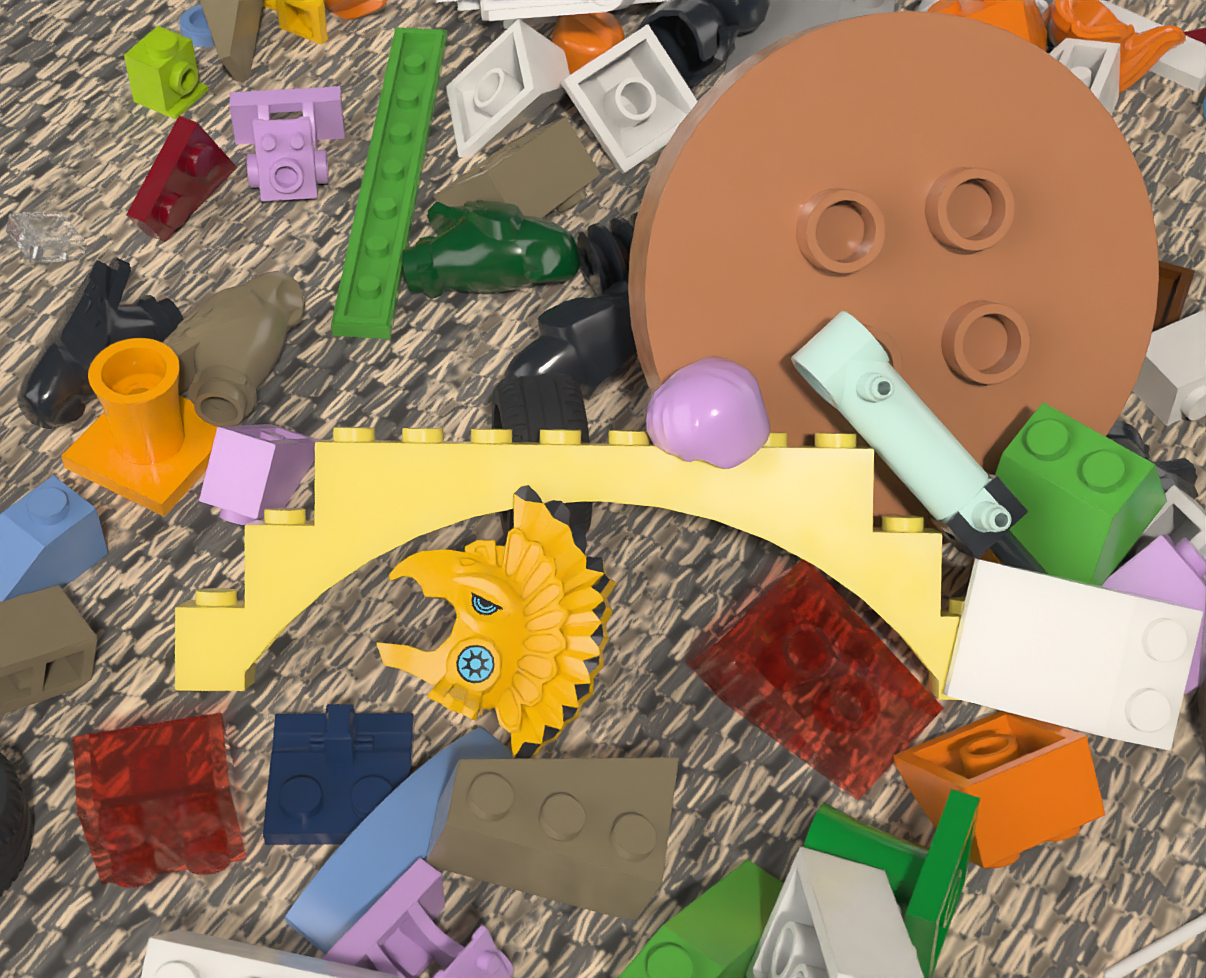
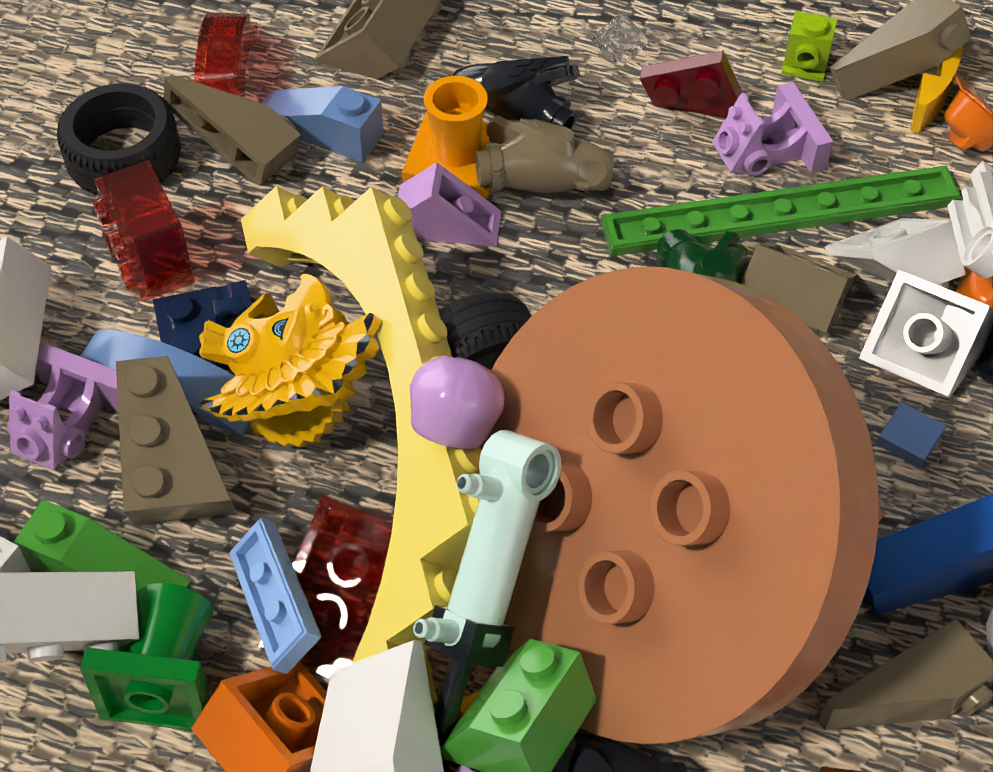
camera: 75 degrees right, 5 degrees up
(815, 747) = (274, 596): none -> light blue tile

